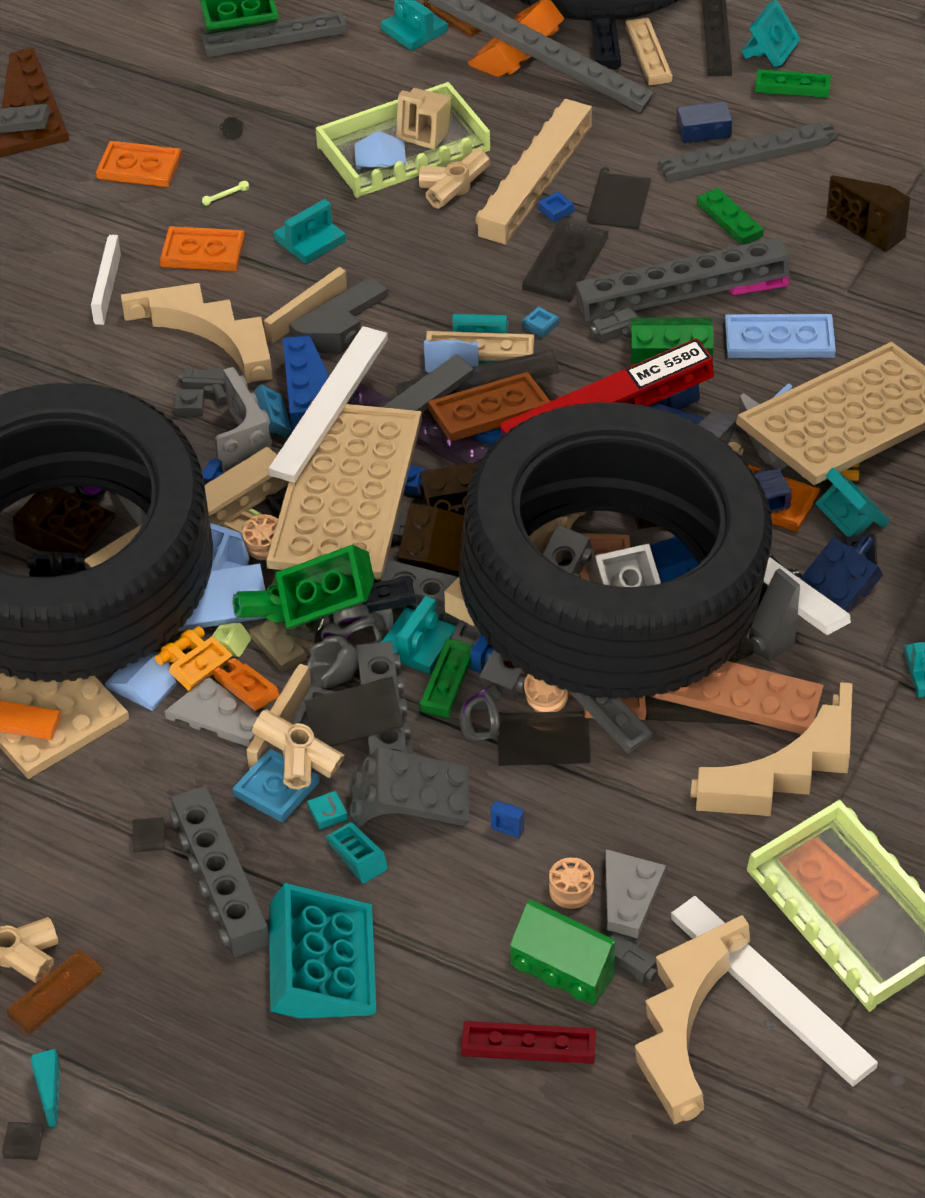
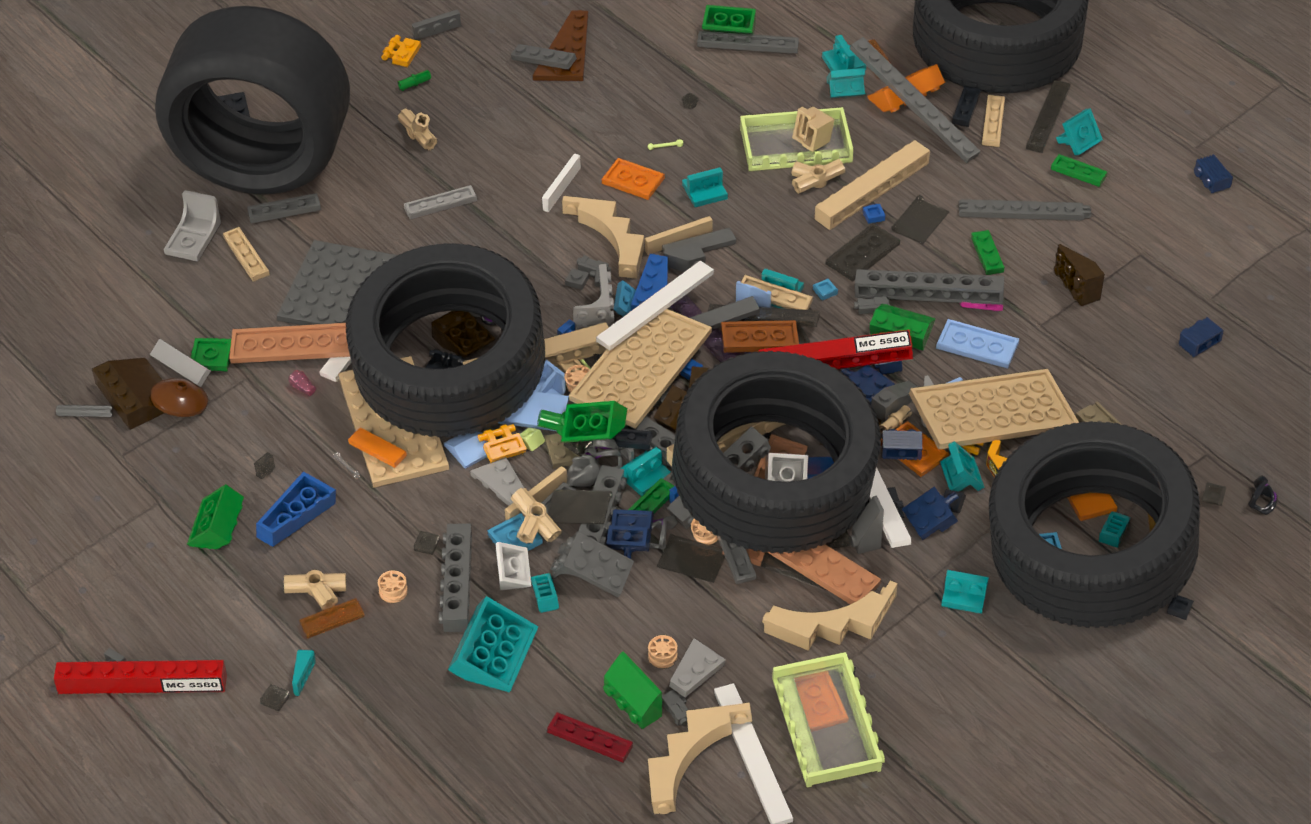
camera: 20 degrees right, 0 degrees up
(128, 916) = (392, 588): none -> light nougat wheel
(139, 163) = (619, 109): orange tile -> none
(246, 684) = (525, 469): orange hinge -> none
(295, 829) = (513, 566): none -> white slope
(327, 810) = (539, 561): teal tile -> none
(379, 151) = (776, 143): light blue slope -> none
(434, 50) = (846, 83): none -> teal bracket
(442, 725) = (630, 531): none -> dark blue plate
(507, 819) = (643, 600): blue plate -> none
(704, 122) = (1003, 181): dark blue brick -> none
(892, 485) = (994, 461): none -> light orange slope

